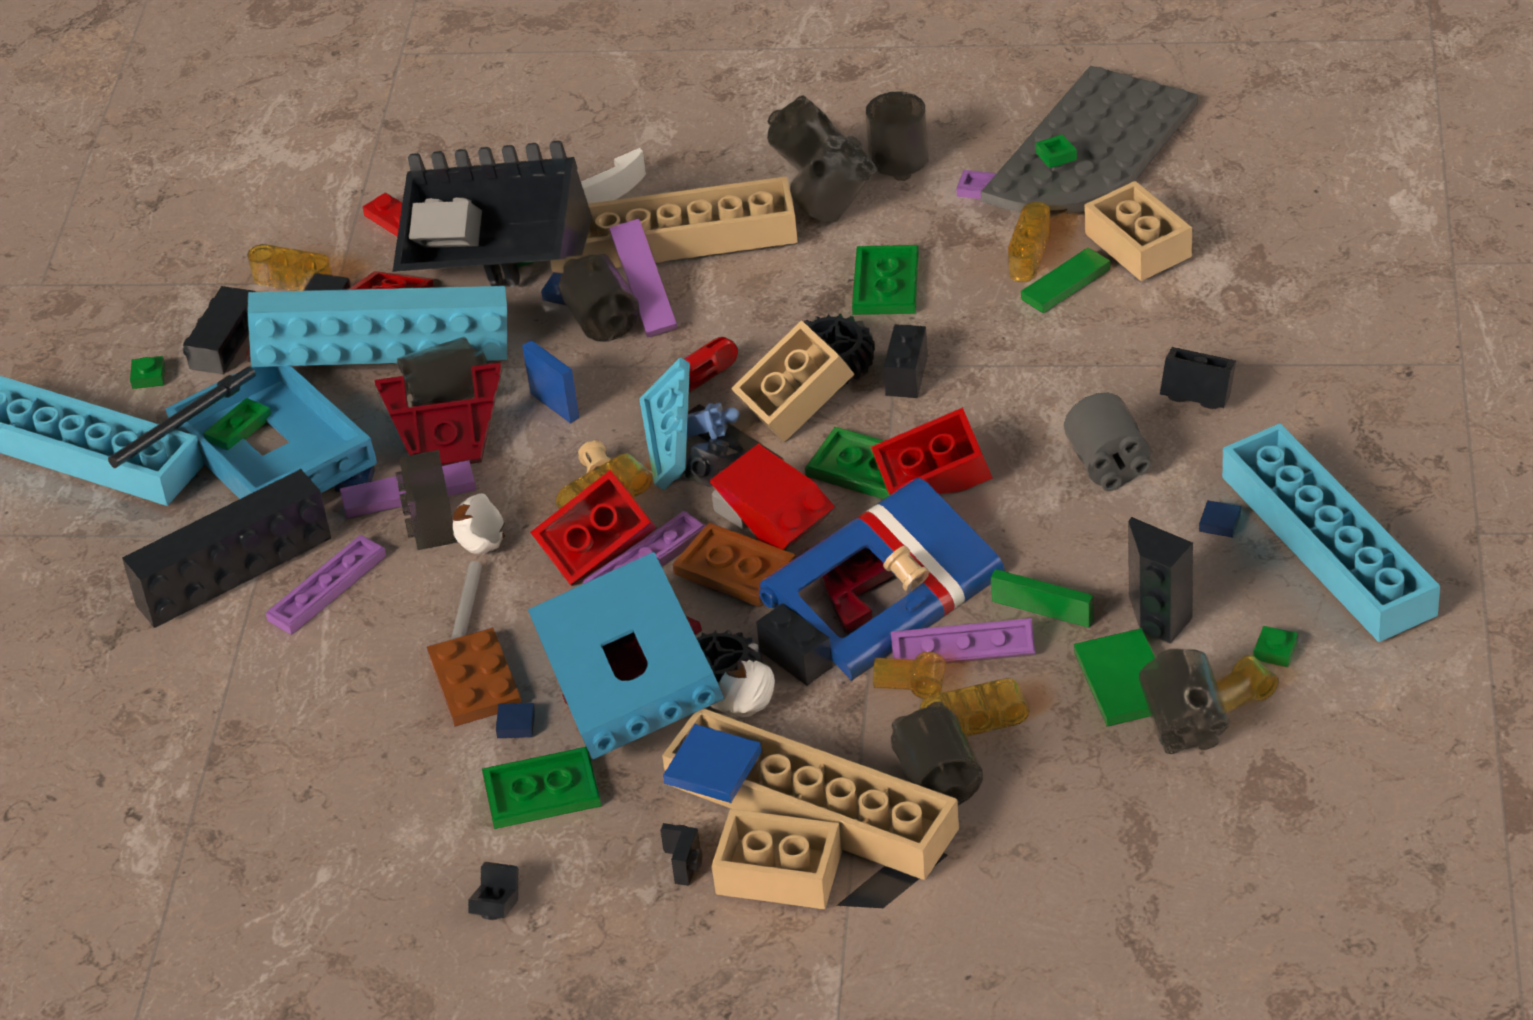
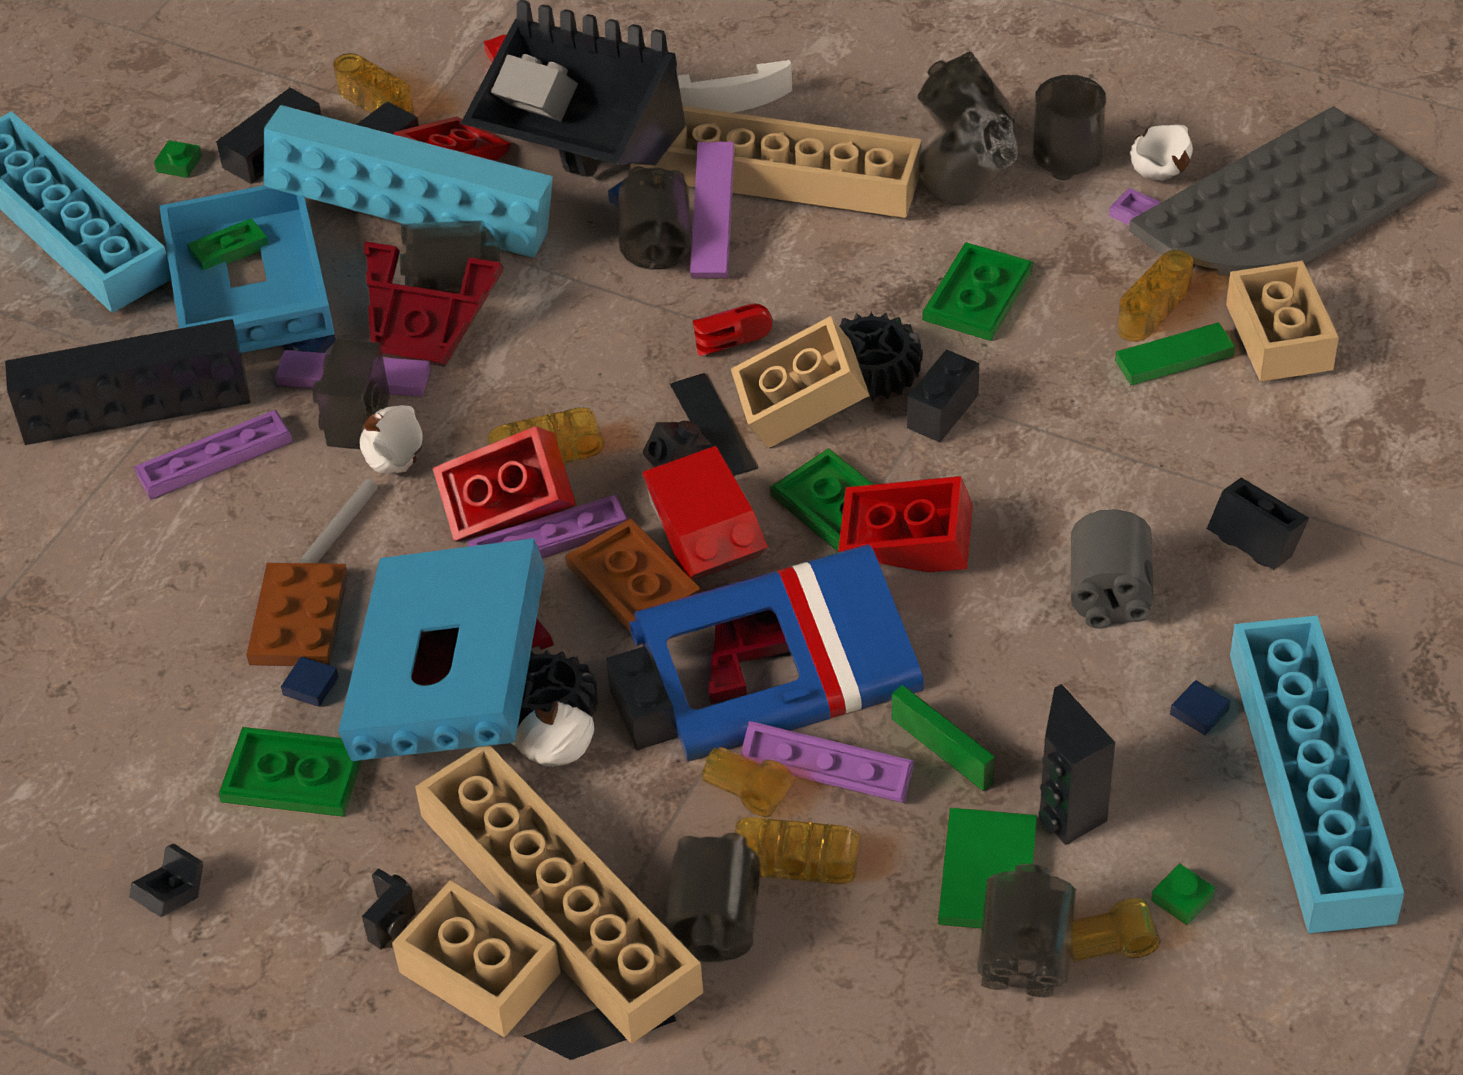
camera: 20 degrees right, 5 degrees up
(225, 388) = (226, 201): black bar -> none
(551, 381) = (552, 299): blue tile -> none
(597, 454) = (556, 397): tan bush -> none
(665, 423) = (647, 387): medium azure wing -> none
(711, 420) = (696, 398): medium blue piece -> none
(712, 763) = (458, 818): blue tile -> none
(906, 568) = (799, 651): tan bush -> none
(978, 135) = (1162, 152): none -> white hair
(1056, 151) = (1233, 197): green plate -> none

